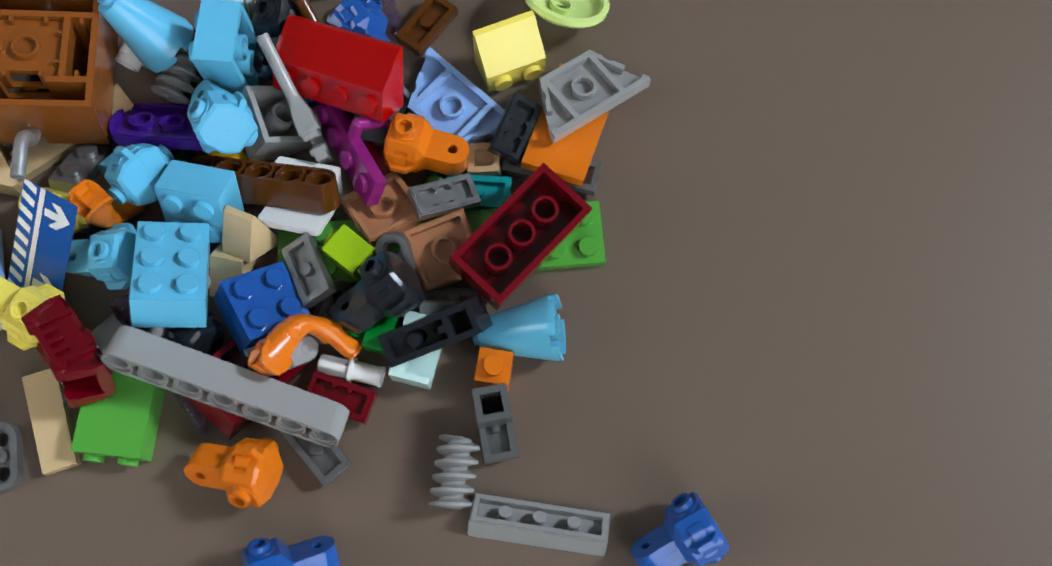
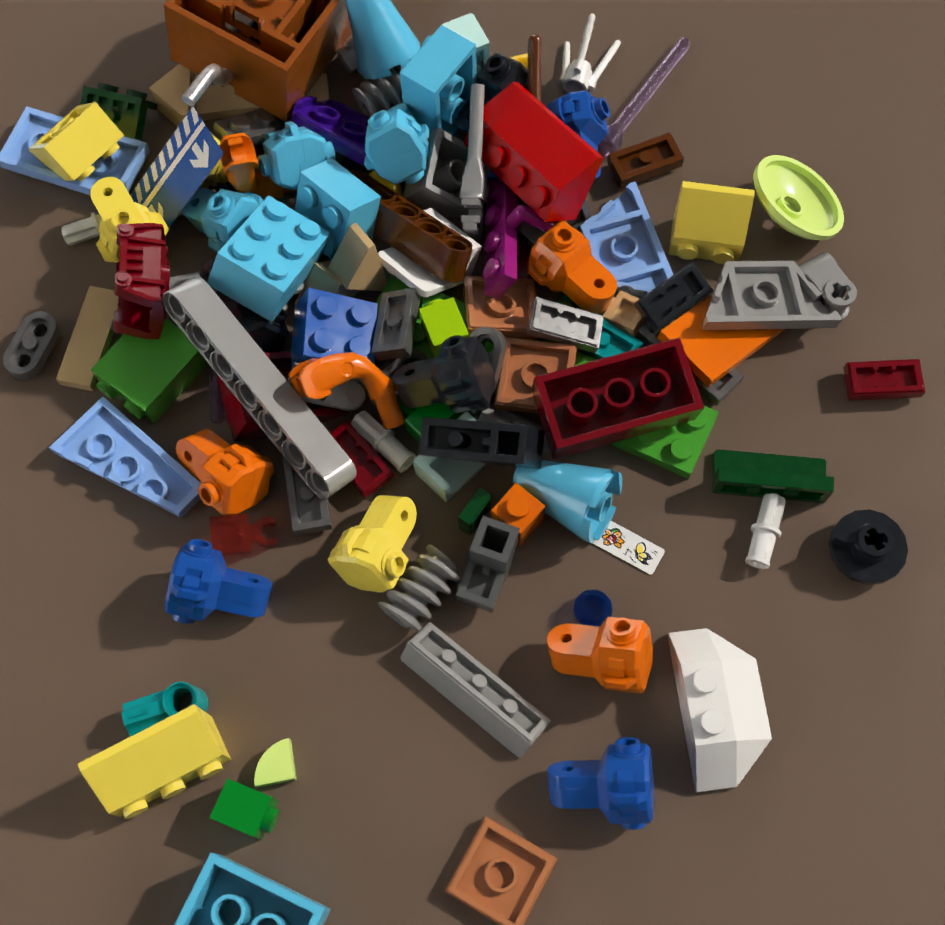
camera: 35 degrees right, 5 degrees down
(140, 503) = (123, 454): none -> light blue wing
(277, 515) = (234, 534): none -> clear red plate
(398, 466) = (372, 552): none -> light yellow piece
(459, 385) = (474, 510): none -> dark green tile
(592, 344) = (630, 548): none -> white sticker
(592, 409) = (592, 608): none -> clear blue plate
(623, 50) = (831, 282): none -> light grey piece
(627, 438) = (614, 654): none -> orange piece
(664, 229) = (763, 474): none -> dark green panel
(685, 274) = (766, 531): none -> white axle
(705, 108) = (884, 379): none -> dark red plate
(725, 429) = (719, 707): none -> white wedge
(764, 245) = (868, 547): none -> black piece

